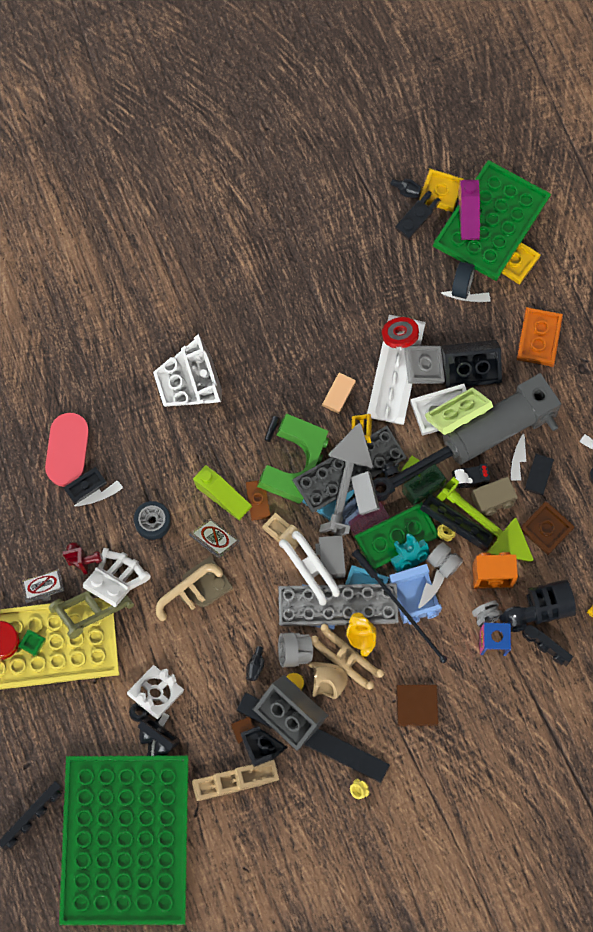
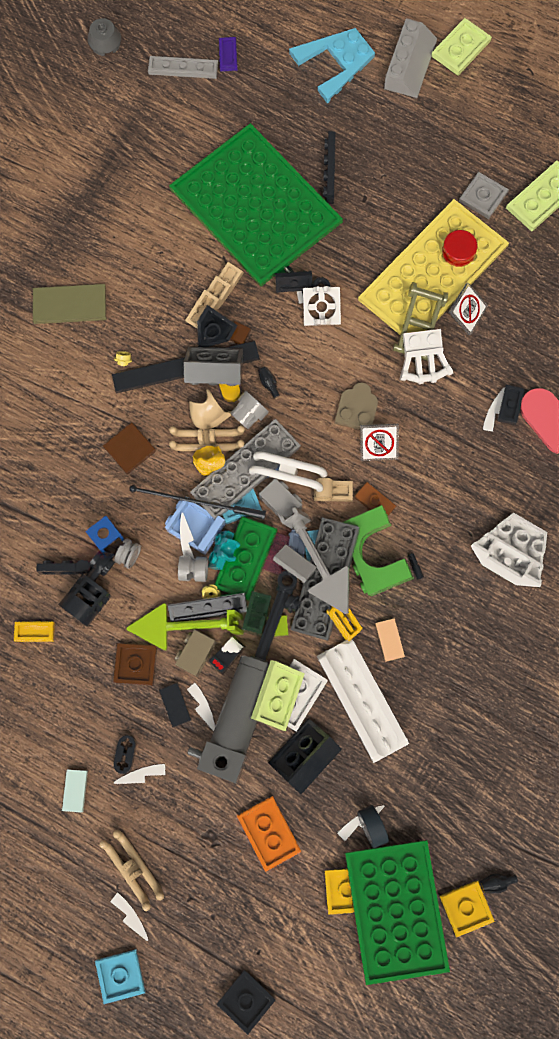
camera: 145 degrees right, 5 degrees up
(32, 643) = (436, 266): green tile -> none
(75, 556) = (461, 347): dark red piece -> none
(146, 512) = (442, 412): wheel -> none
(188, 582) = (363, 388): tan piece -> none
(221, 492) = (406, 480): lime slope -> none
(366, 885) = (69, 304): none -> olive tile
(400, 324) = (392, 733): red tile -> none
(417, 216) = (464, 860): black hinge -> none
(424, 364) = (342, 720): light grey tile -> none
(469, 209) = (422, 898): magenta slope -> none
(494, 570) = (146, 588): orange brick -> none

